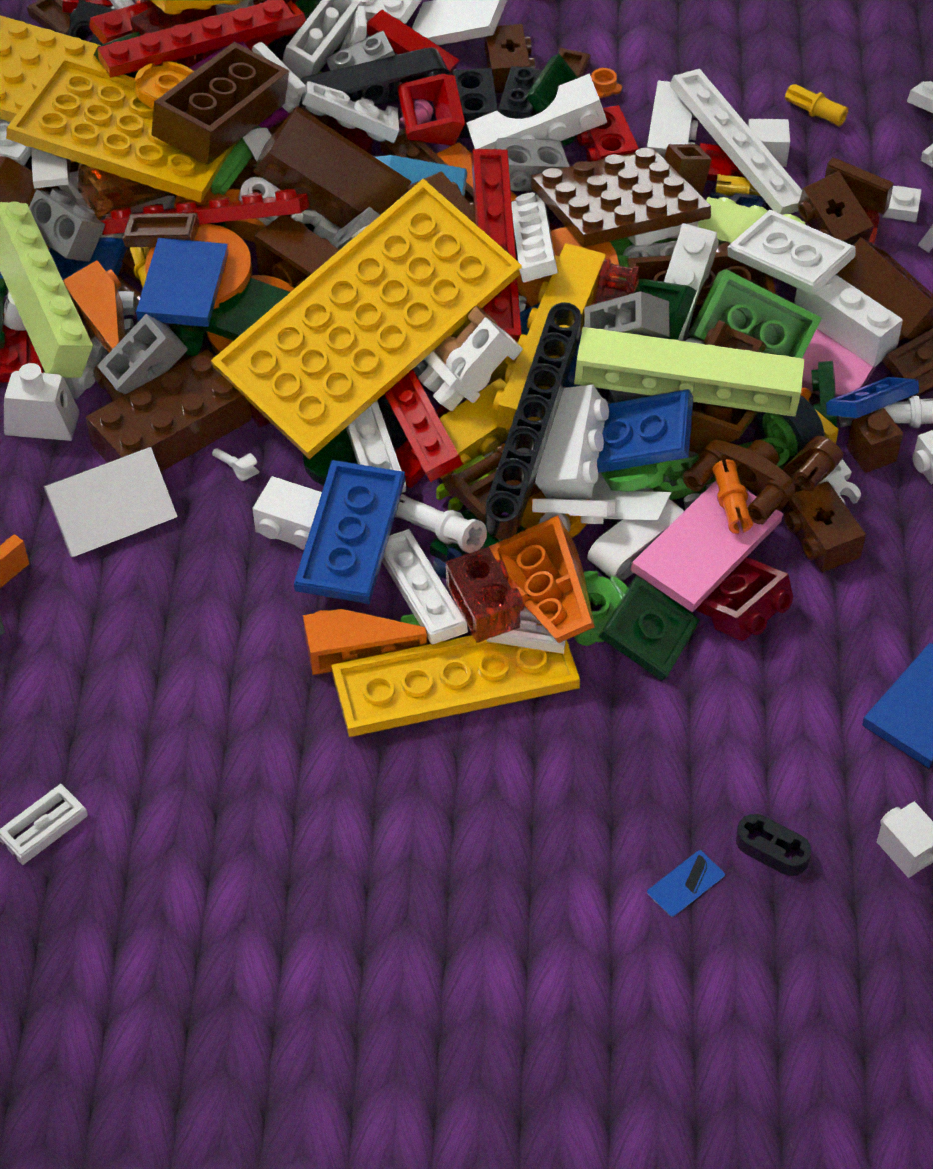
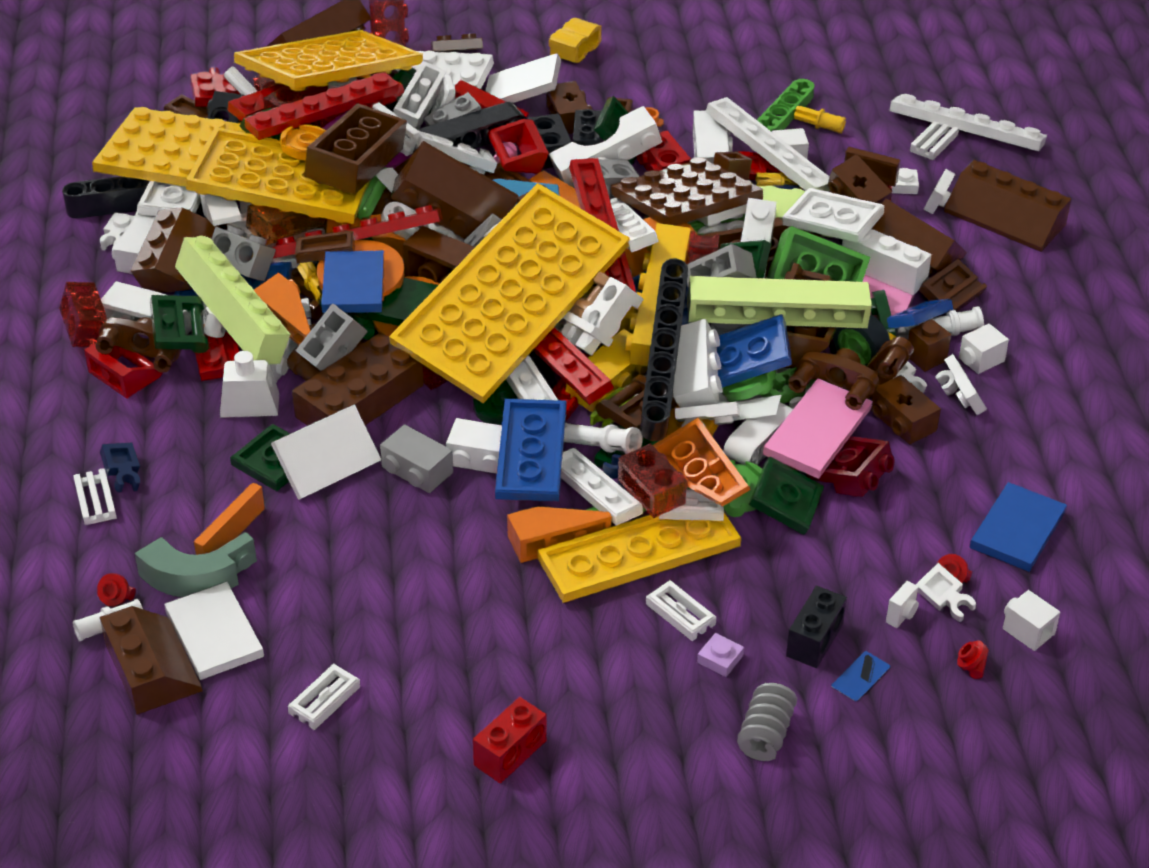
camera: 10 degrees left, 10 degrees down
(29, 497) = (260, 459): none -> dark green tile
(216, 522) = (416, 458): none -> light grey brick
(240, 915) = (509, 739): none -> red brick
(242, 467) = (426, 418): white hand -> none
(503, 790) = (676, 612): none -> white tile
(521, 832) = (720, 654): none -> lavender plate
(551, 933) = (767, 721): none -> light grey piece
(642, 813) = (816, 626): none -> black brick
(732, 496) = (831, 390): orange pin -> none
(757, 795) = (902, 604): none -> white plate
(770, 82) = (797, 94): none -> bright green beam
(773, 844) = (923, 638): black beam -> none
(811, 782) = (943, 589): none -> white plate
(828, 880) = (973, 658): none -> red plate
(831, 757) = (956, 566): none -> red plate
(904, 496) = (958, 378): none -> white plate

